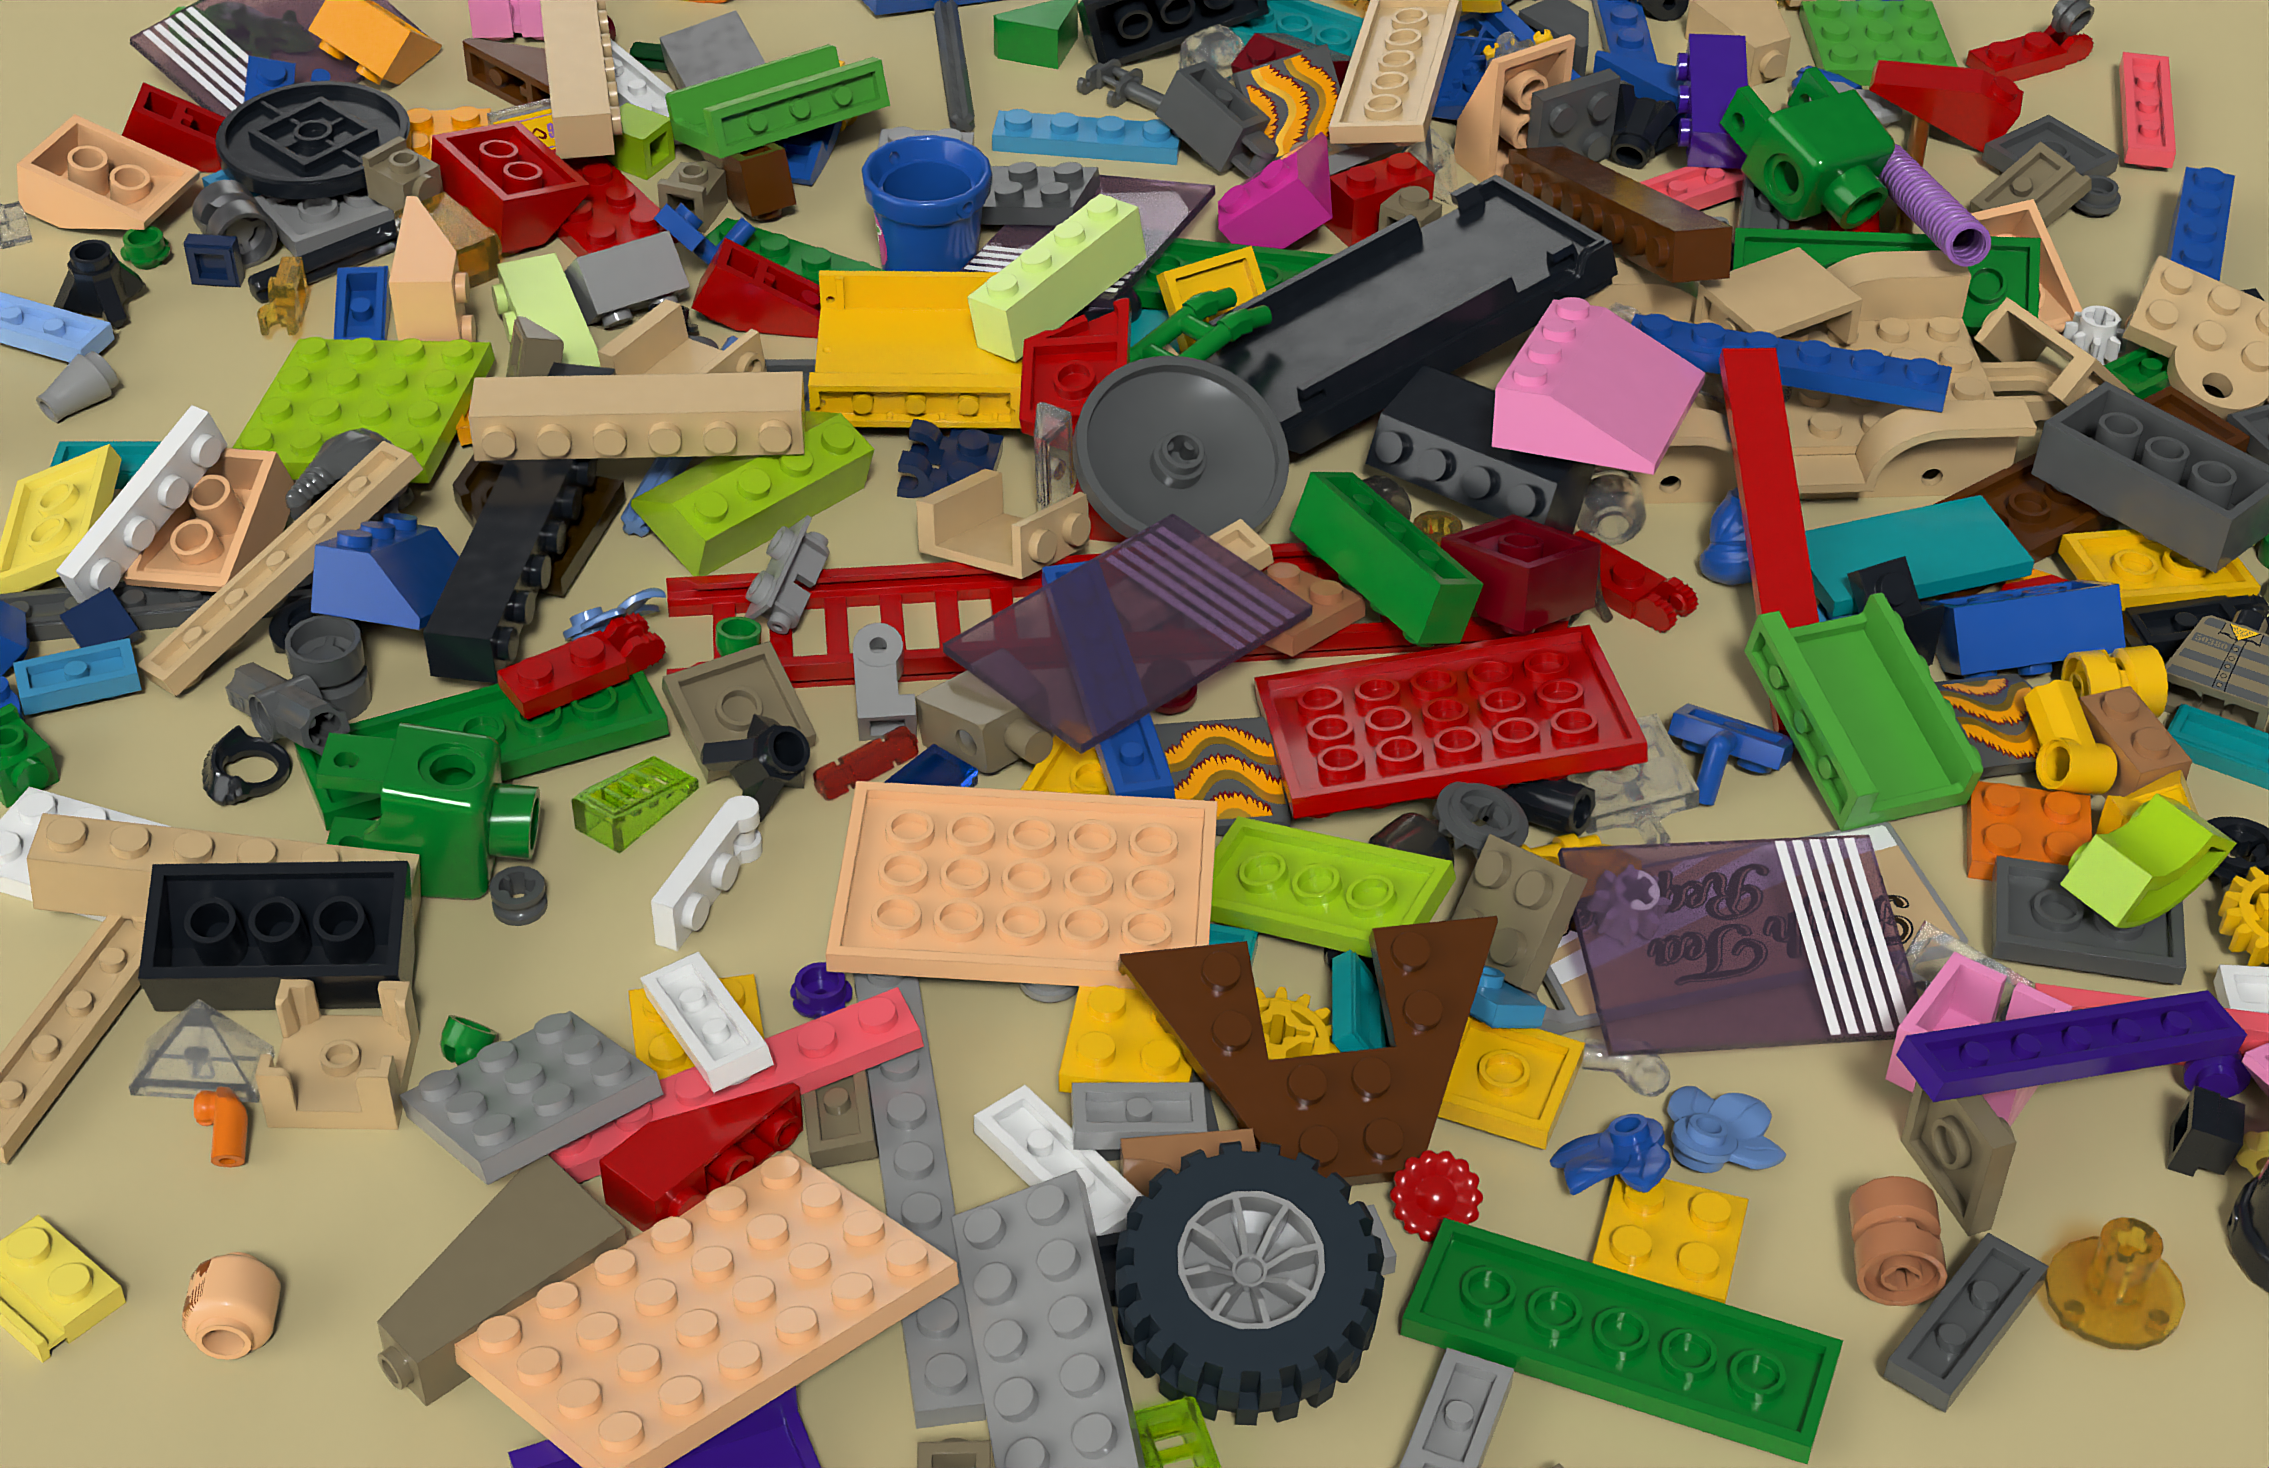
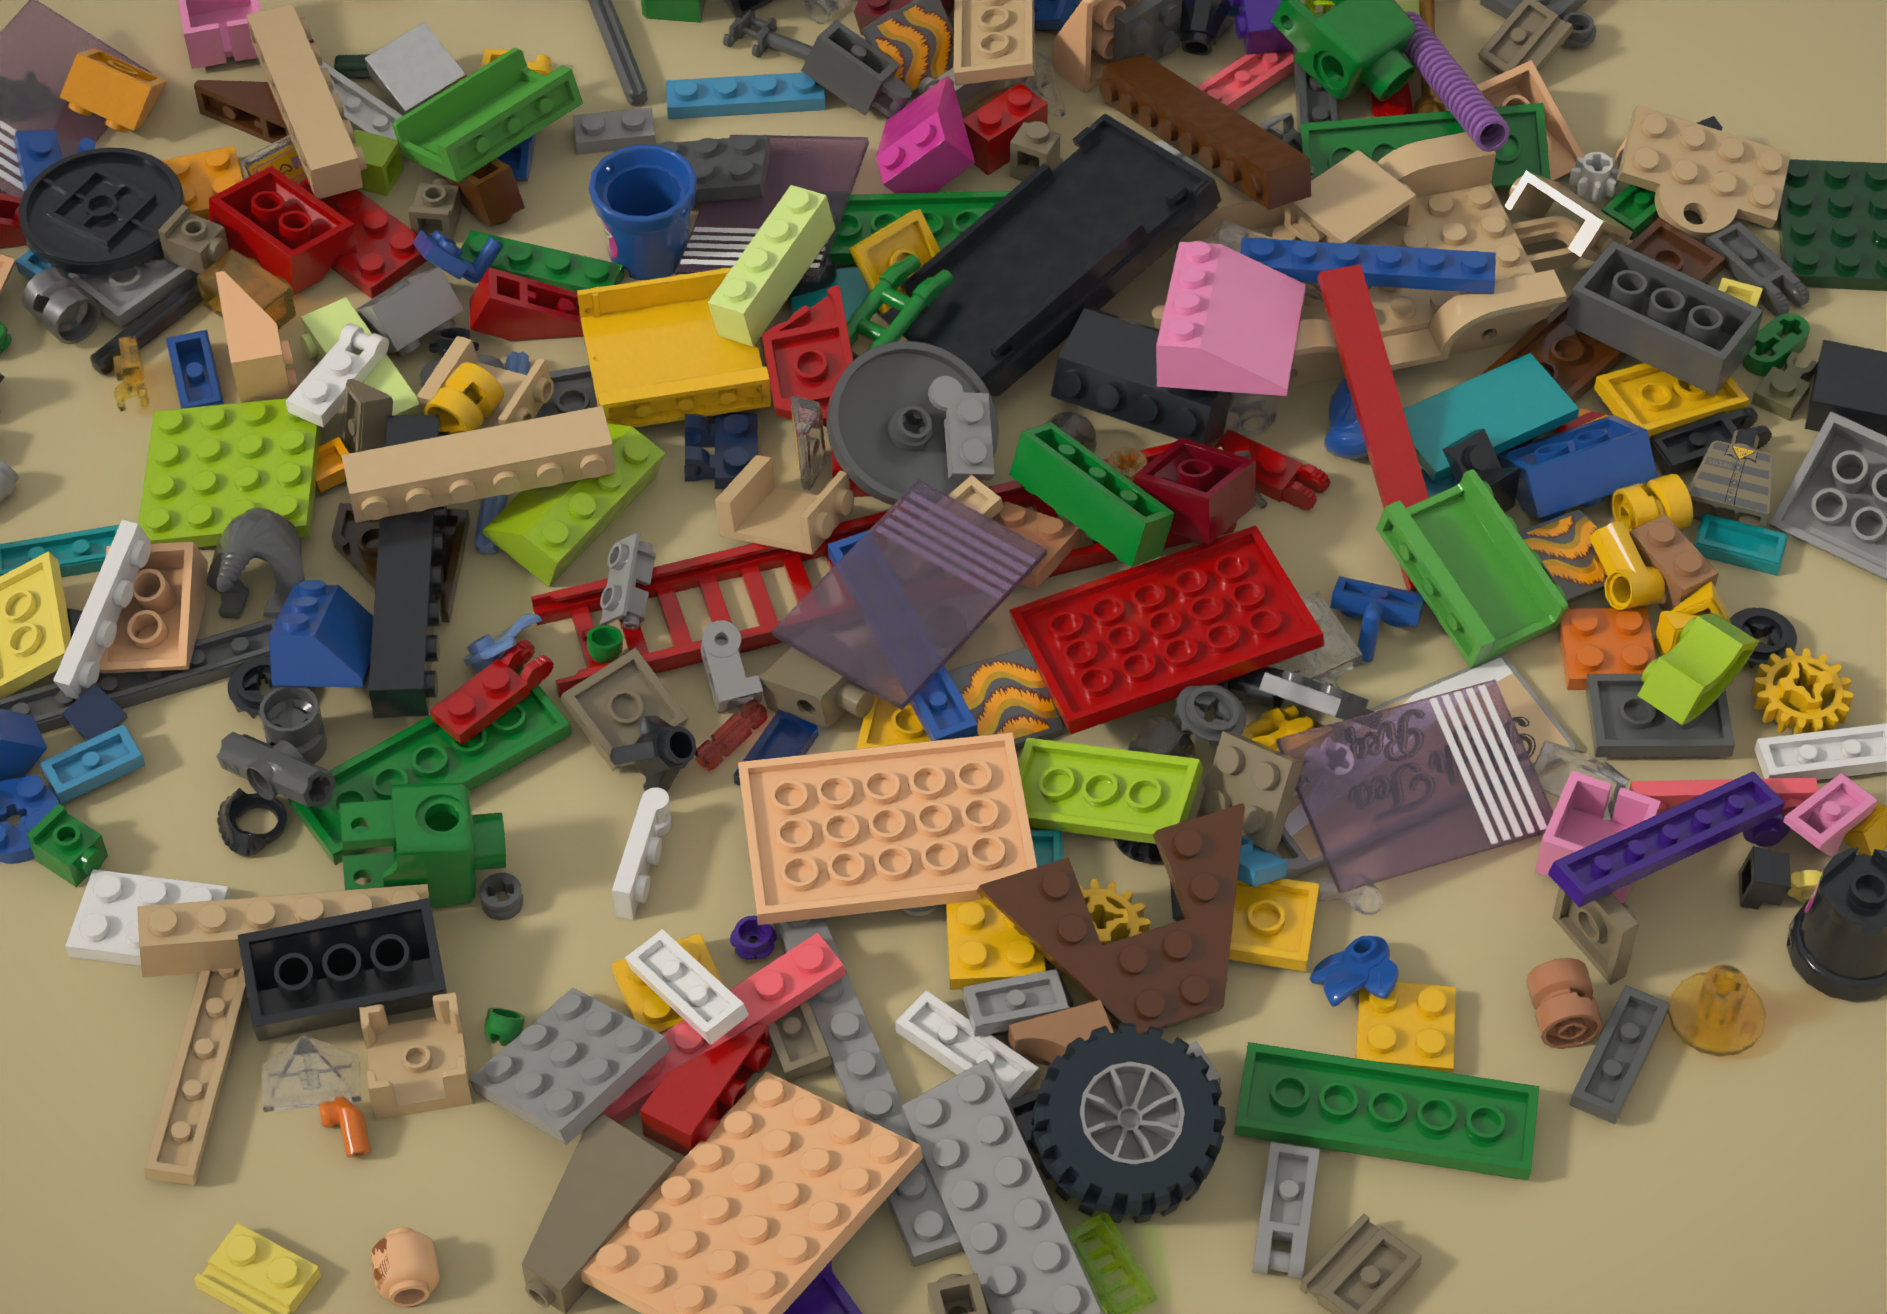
camera: 10 degrees left, 10 degrees up
(214, 260) = (55, 344): dark blue tile -> none
(277, 570) = (229, 644): tan plate -> none
(488, 335) = (324, 388): none -> white plate
(614, 820) = (560, 826): clear neon green slope -> none
(656, 350) = (466, 399): none -> yellow wheel
(1245, 466) = (966, 429): none -> light grey hinge
(1356, 1005) = (1151, 886): teal tile -> none
(1434, 1190) = (1236, 1022): red piece -> none
(1617, 819) = (1315, 695): none -> plate
(1721, 1131) = (1426, 934): medium blue plate -> none
(2201, 220) = (1663, 58): blue brick -> none

